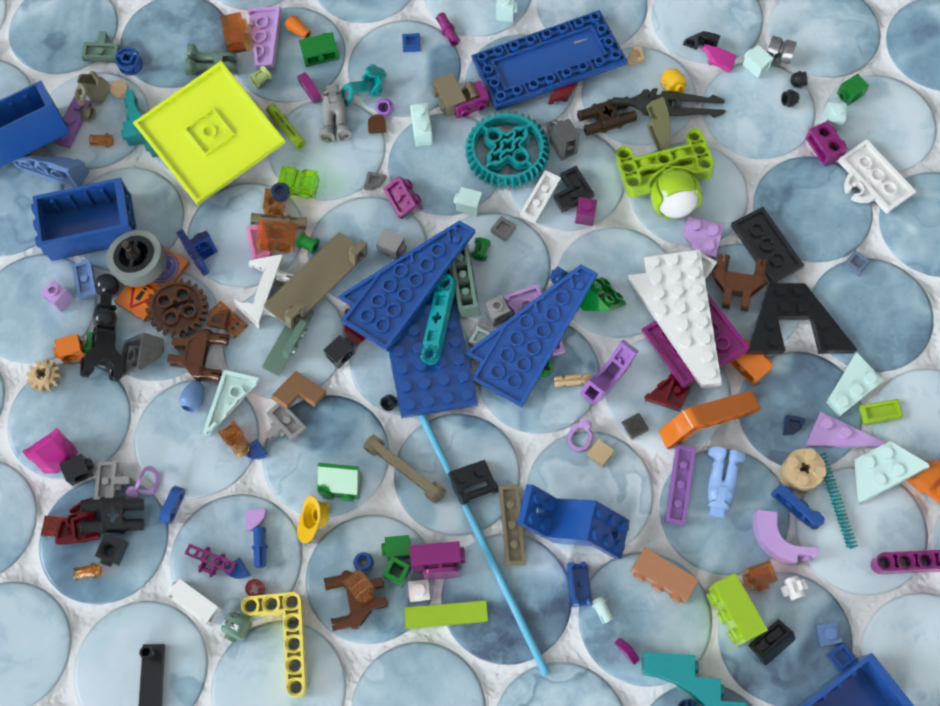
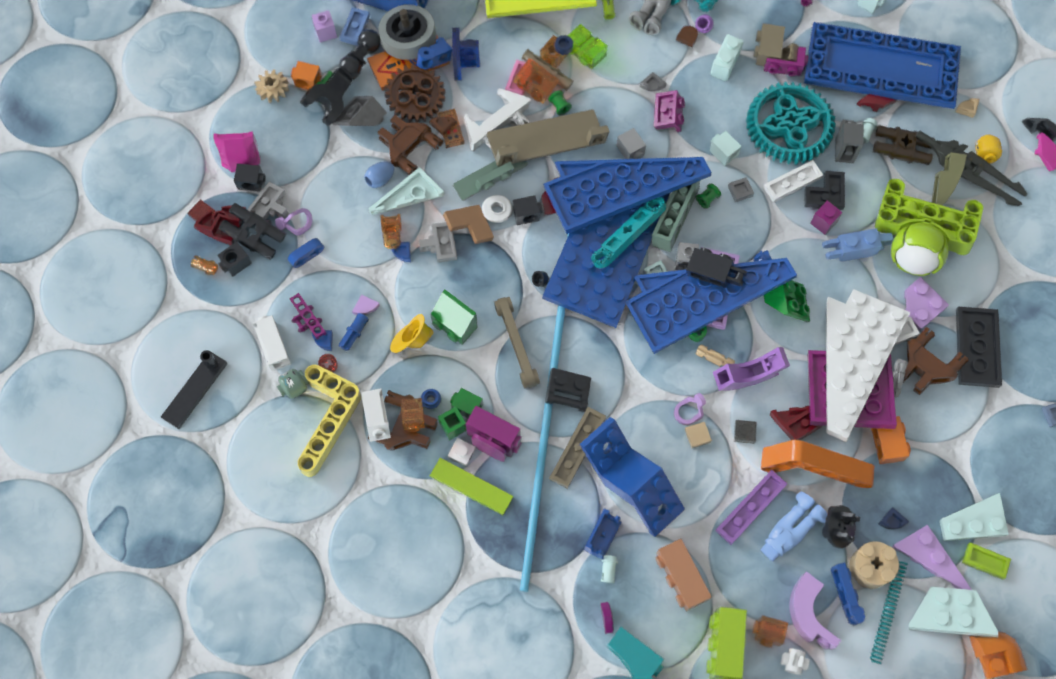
camera: 30 degrees right, 0 degrees up
(174, 264) = (435, 54): none -> blue leg
(313, 356) = (497, 200): none -> white piece
(327, 607) = (375, 415): none -> white window
(528, 307) = (714, 268): none -> black brick
(571, 114) = (869, 126): none -> light aqua pin
(624, 219) = (857, 245): none -> medium blue hinge
(724, 305) = (898, 375): none -> light grey axle
(758, 456) = (840, 526): none -> black plate
(795, 302) = (970, 414): black wing -> none

